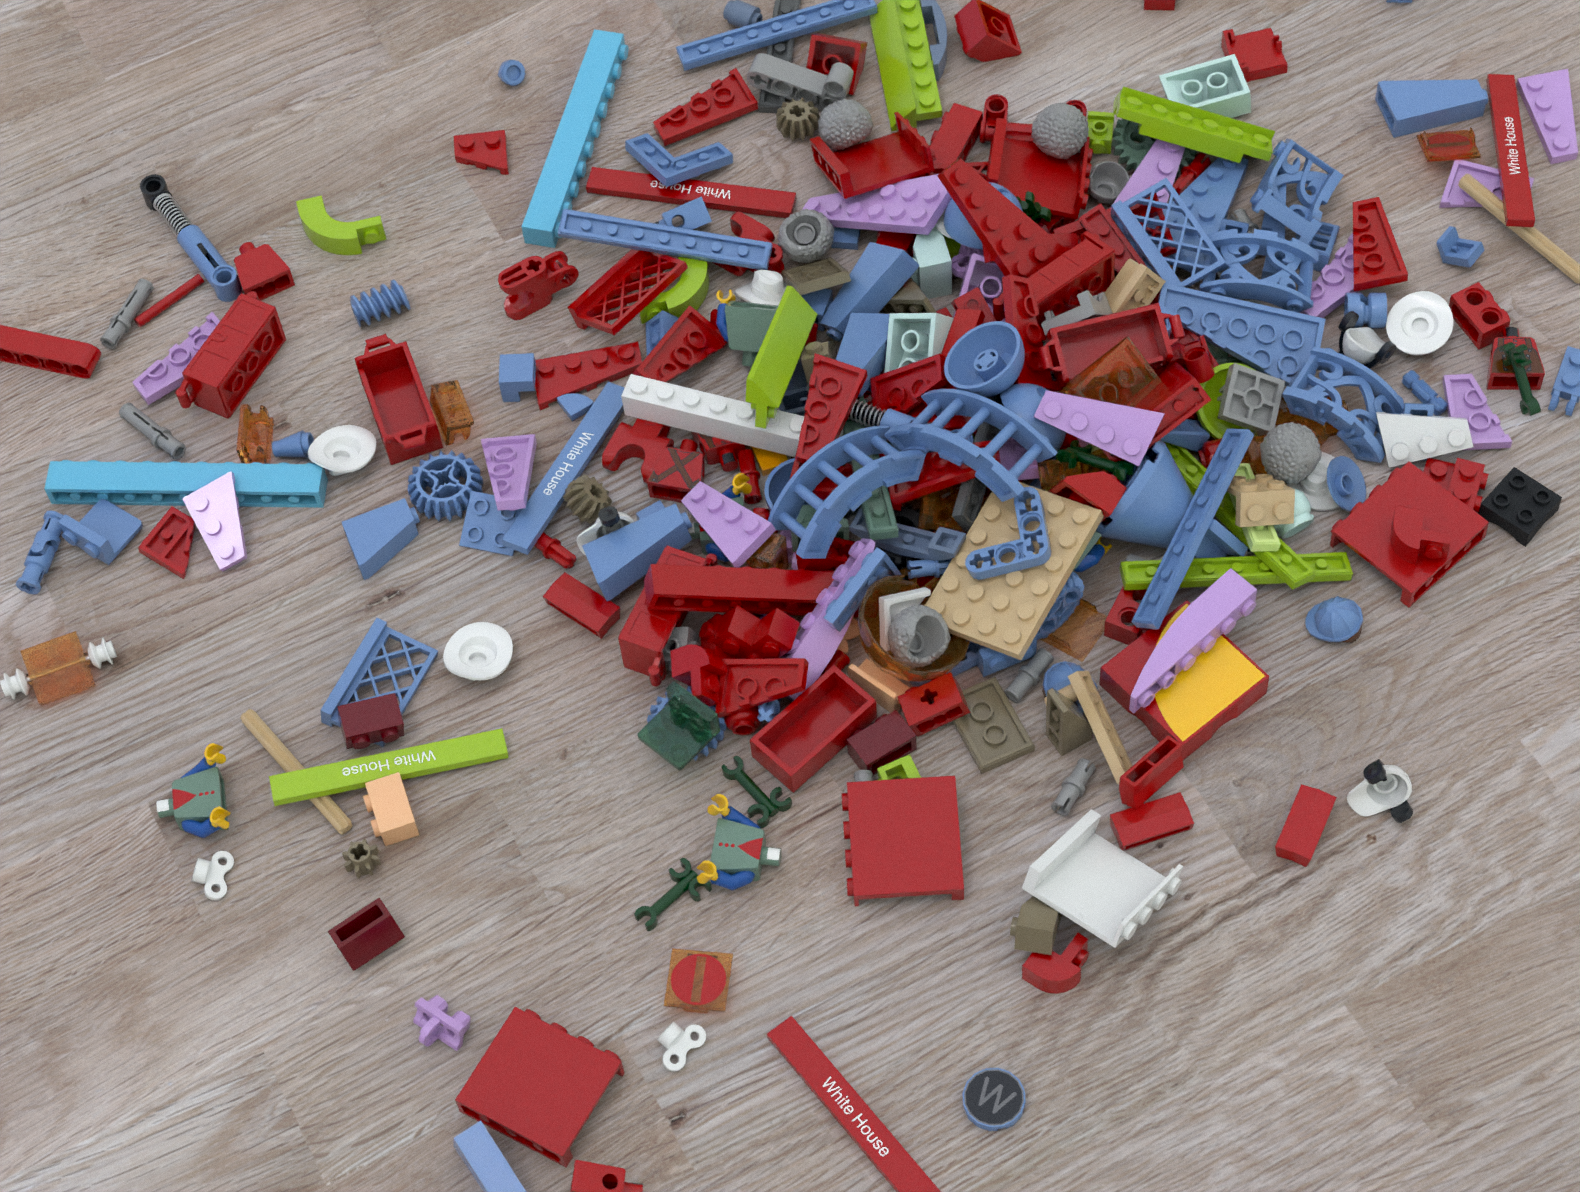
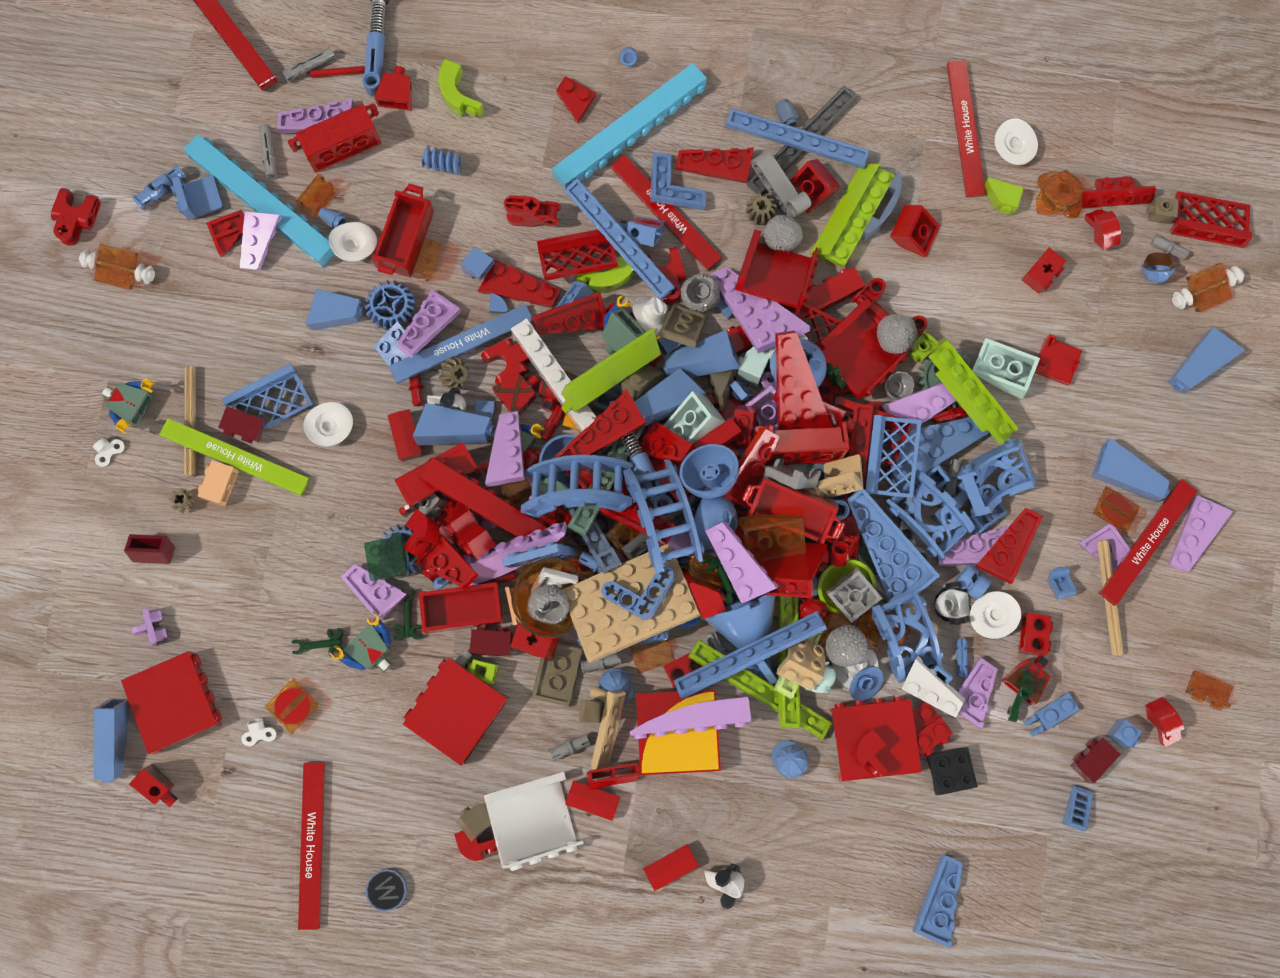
camera: 30 degrees right, 20 degrees up
(686, 789) = (375, 595): none -> lavender wing
(940, 295) = (741, 391): none -> medium blue plate

